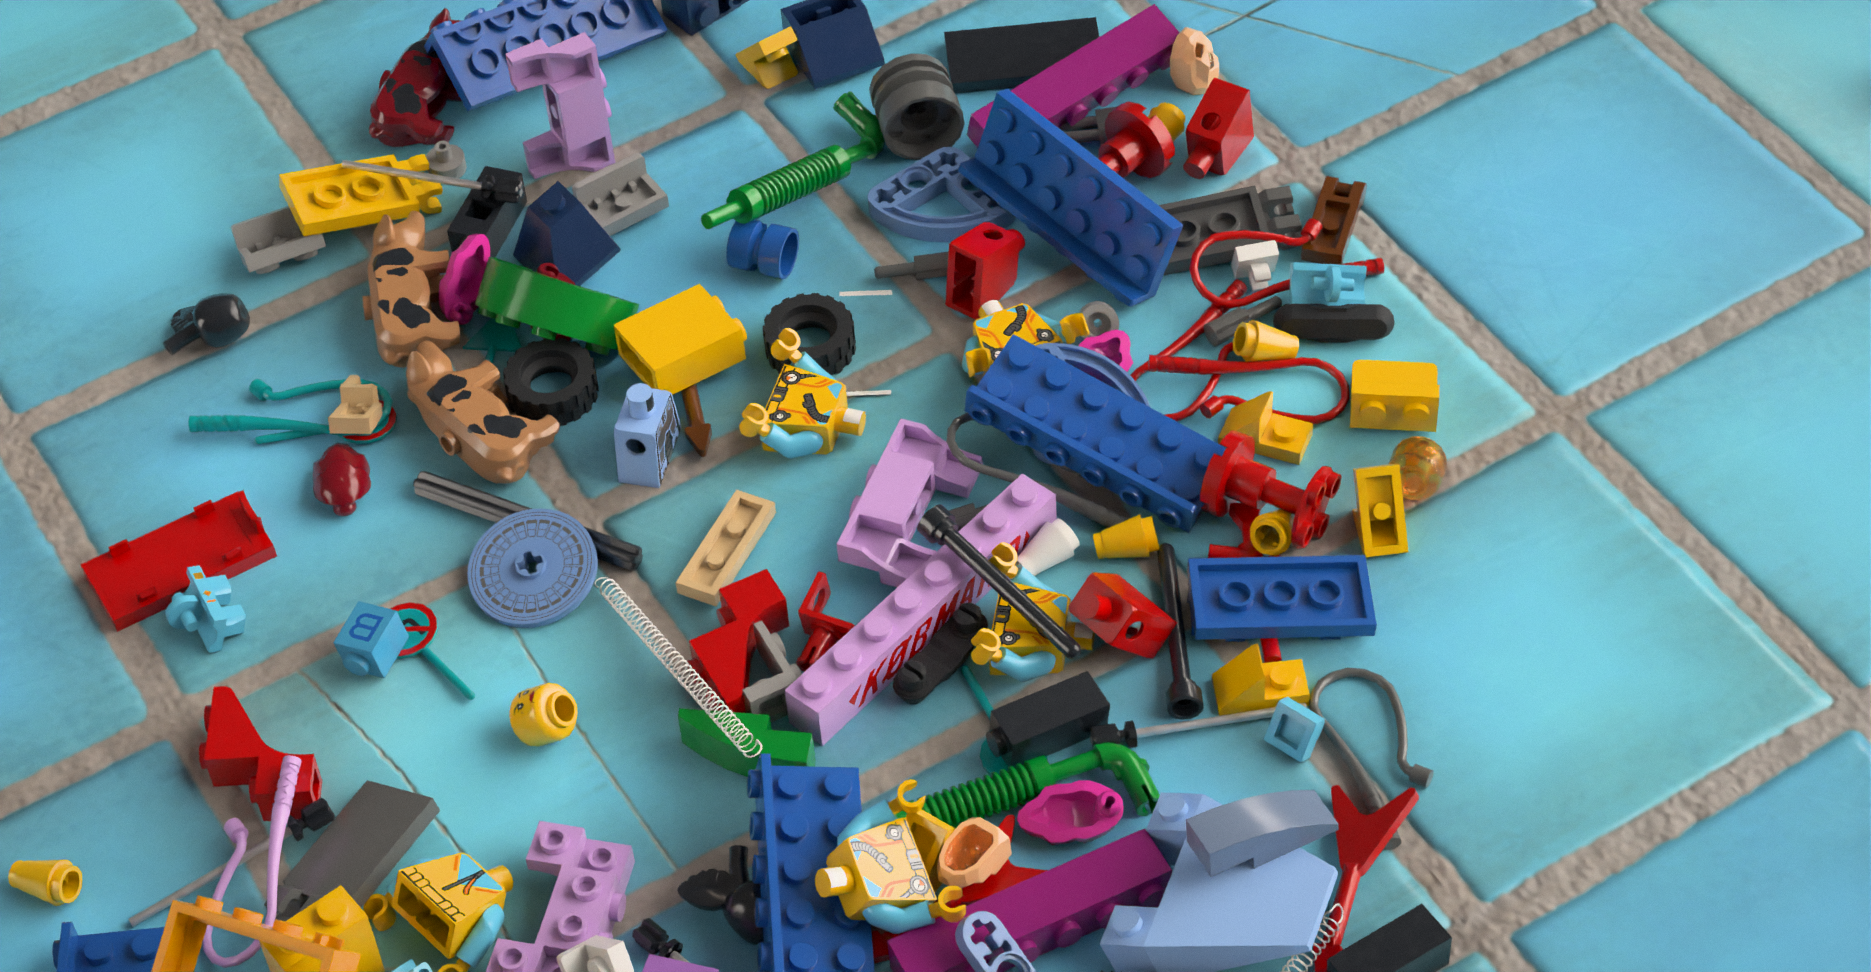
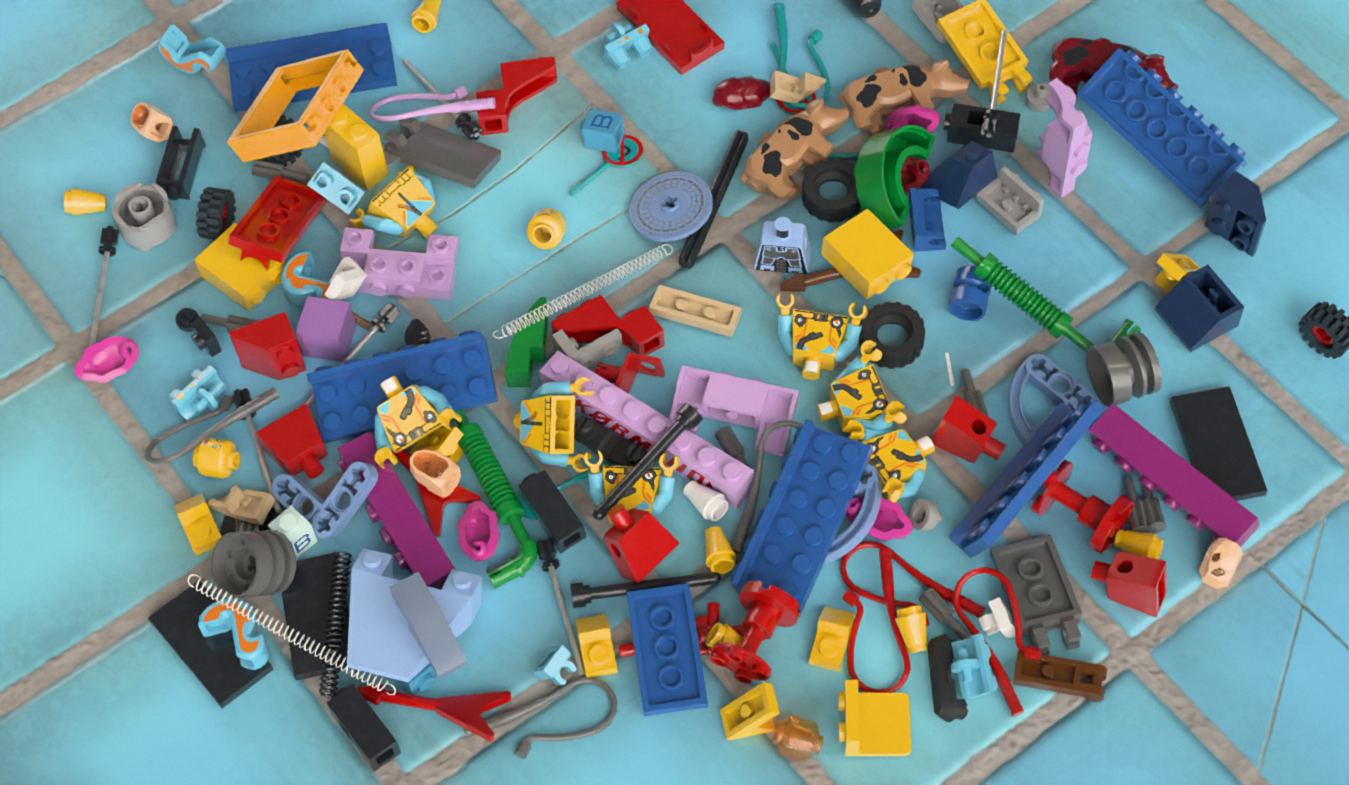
camera: 85 degrees right, 10 degrees up
(638, 290) = (926, 220): none -> blue hinge
(906, 705) = (549, 421): none -> torso
(911, 372) = (860, 396): none -> torso

